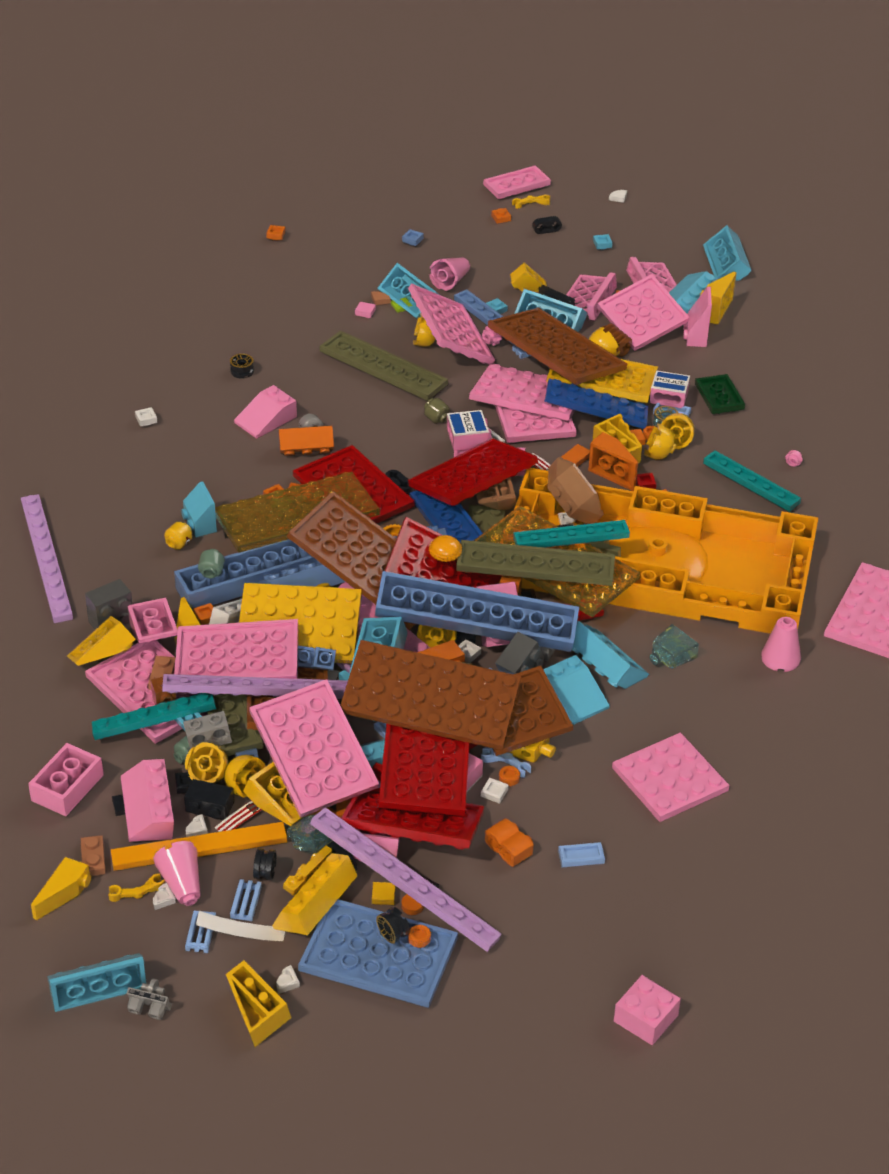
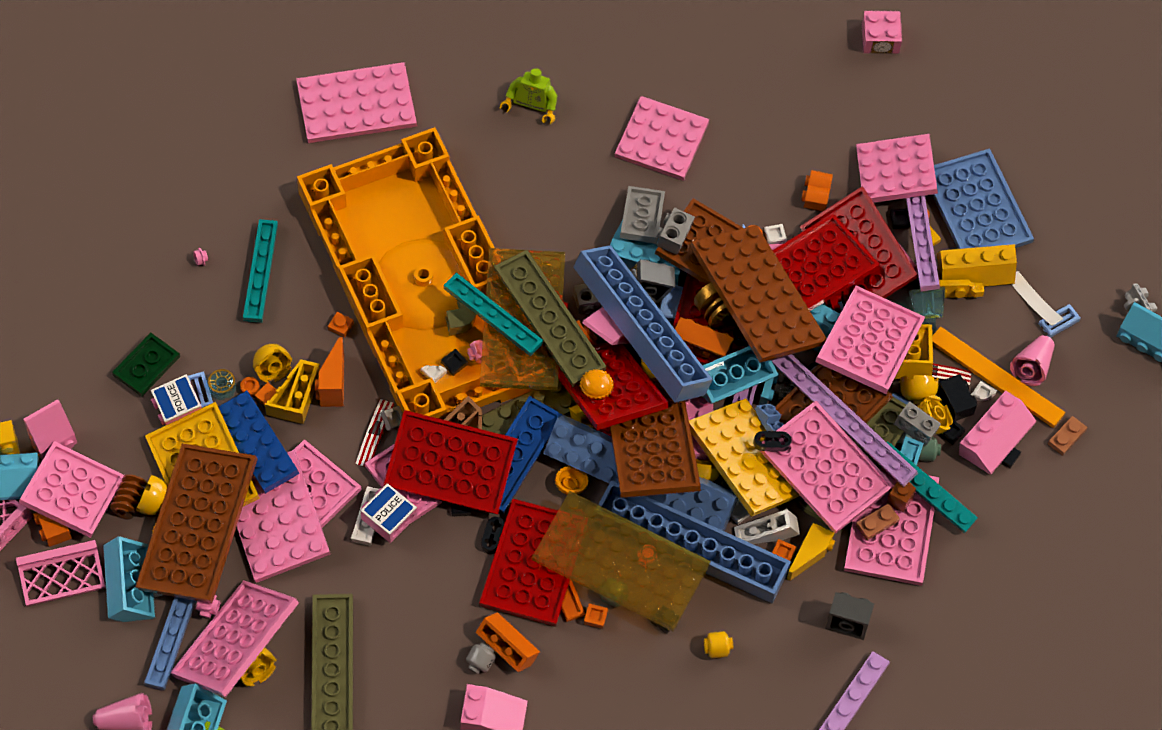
camera: 130 degrees left, 20 degrees up
(62, 886) = (1110, 426): yellow slope -> none
(66, 779) = (1032, 498): bright pink brick -> none
(105, 641) = (892, 588): yellow slope -> none
(137, 892) = (1067, 382): yellow piece -> none
(152, 620) = (839, 564): bright pink slope -> none
(163, 897) = (1057, 365): white tile -> none
(200, 511) = (678, 648): medium azure slope -> none
(211, 563) = (749, 562): sand green head -> none
(248, 886) = (1023, 306): light blue tile -> none
(258, 1003) = (1084, 236): yellow wedge -> none
(264, 864) = (978, 316): black wheel -> none
(287, 980) = (1046, 243): white tile -> none
(289, 624) = (772, 441): none -> black beam
(392, 925) = (961, 196): black wheel -> none
(419, 936) = (948, 184): orange tile -> none
(436, 410) = (368, 571): olive head -> none
(473, 905) = (897, 168): none -> bright pink plate
(498, 306) = (146, 643): medium azure plate -> none
(526, 278) = (81, 639): yellow slope -> none
(544, 680) = (676, 231): none -> light grey brick
(549, 292) = (88, 596): black axle -> none
(573, 491) = (423, 364): medium nougat wedge -> none
(577, 455) = (339, 423): orange tile -> none
(581, 854) = (784, 147): light blue tile -> none
(594, 701) = (642, 214): none -> light grey plate
(606, 657) = (579, 232): medium azure slope -> none
(646, 480) = (327, 344): red plate -> none
(673, 648) = (529, 207): clear light blue torso -> none
(681, 427) = (238, 359): yellow cylinder -> none
(782, 646) = (468, 134): bright pink cone -> none
(788, 710) = (533, 92): none -> lime torso

